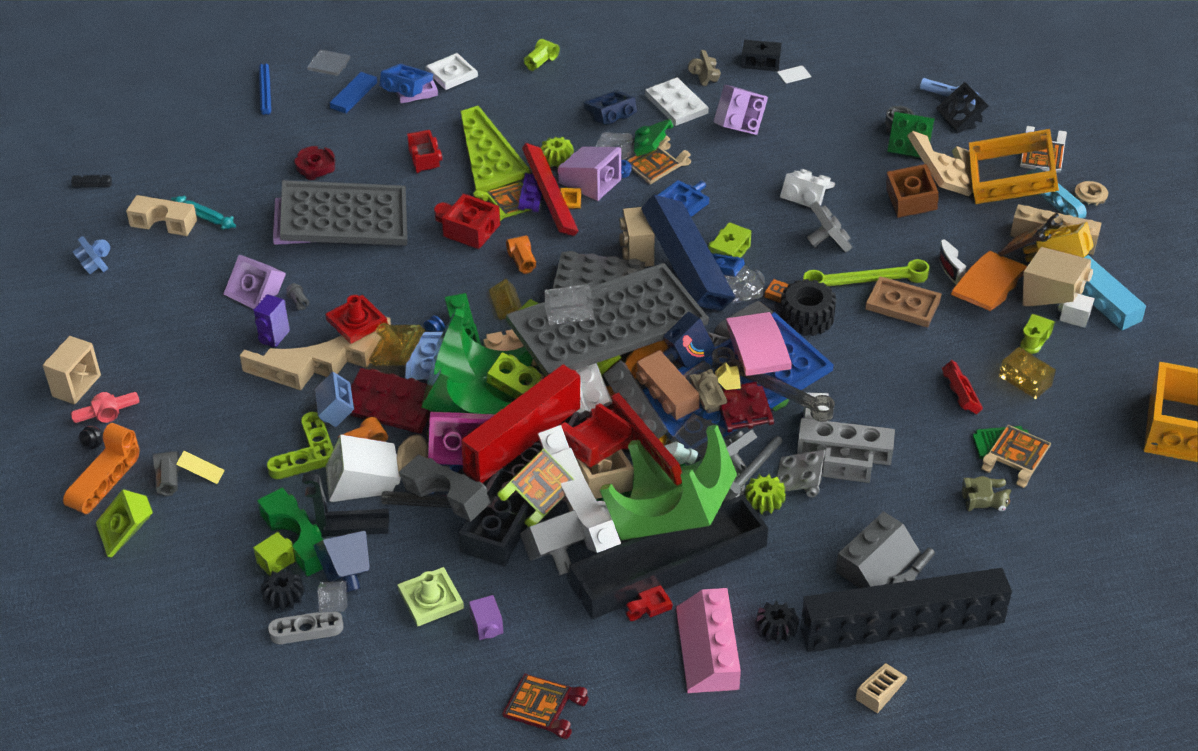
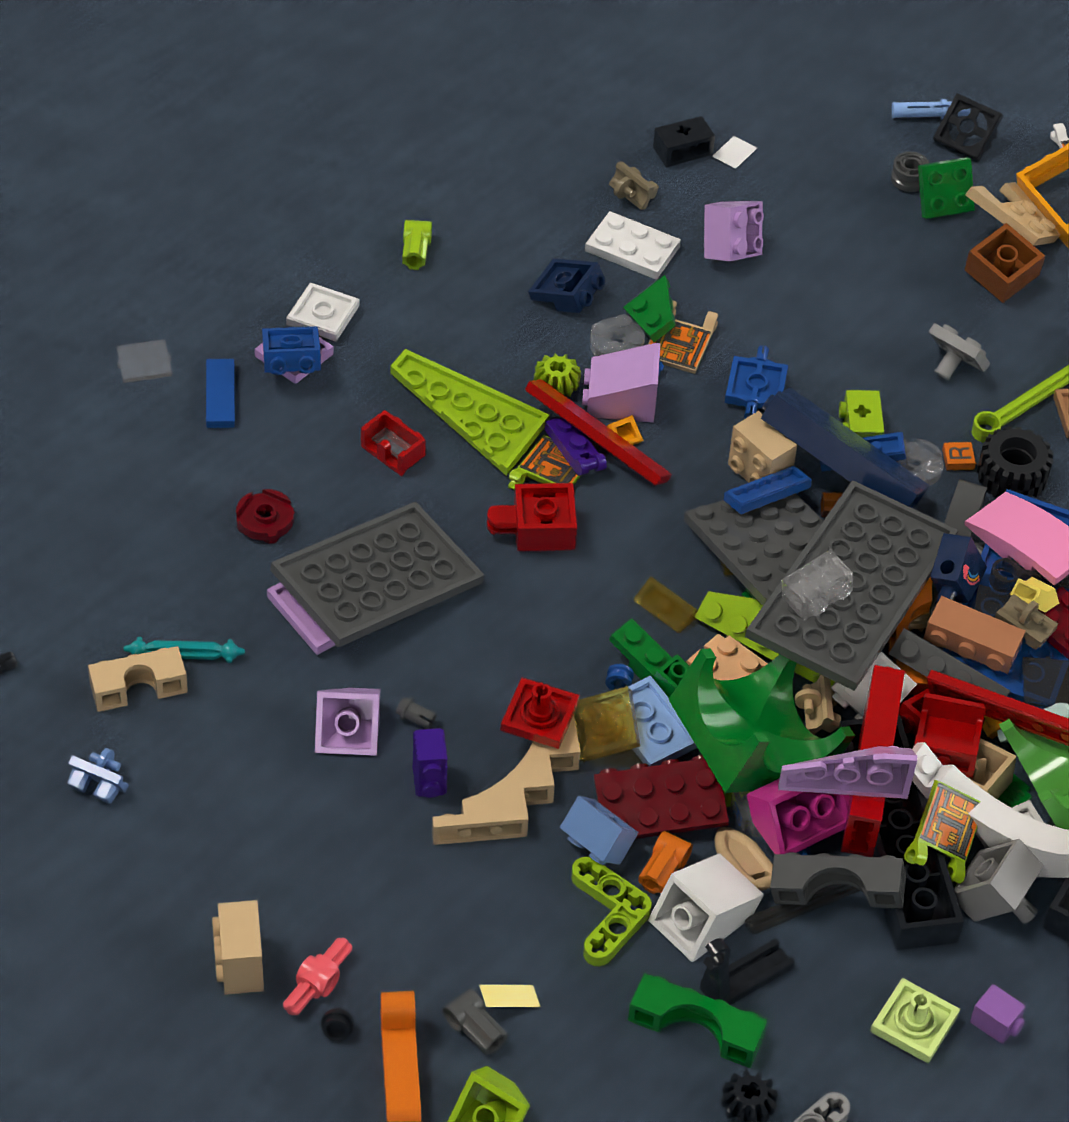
camera: 35 degrees left, 5 degrees up
(264, 88) = (97, 435): blue axle -> none
(274, 553) = (700, 1060): lime brick -> none
(332, 596) = (819, 1077): clear brick -> none
(344, 558) = (795, 1024): torso -> none
(484, 415) = (863, 772): none -> lavender wedge
(510, 382) = (799, 712): lime brick -> none
(520, 250) = (629, 529): orange piece -> none
(616, 255) = (767, 489): none -> blue plate
(805, 188) = (883, 306): white bracket -> none

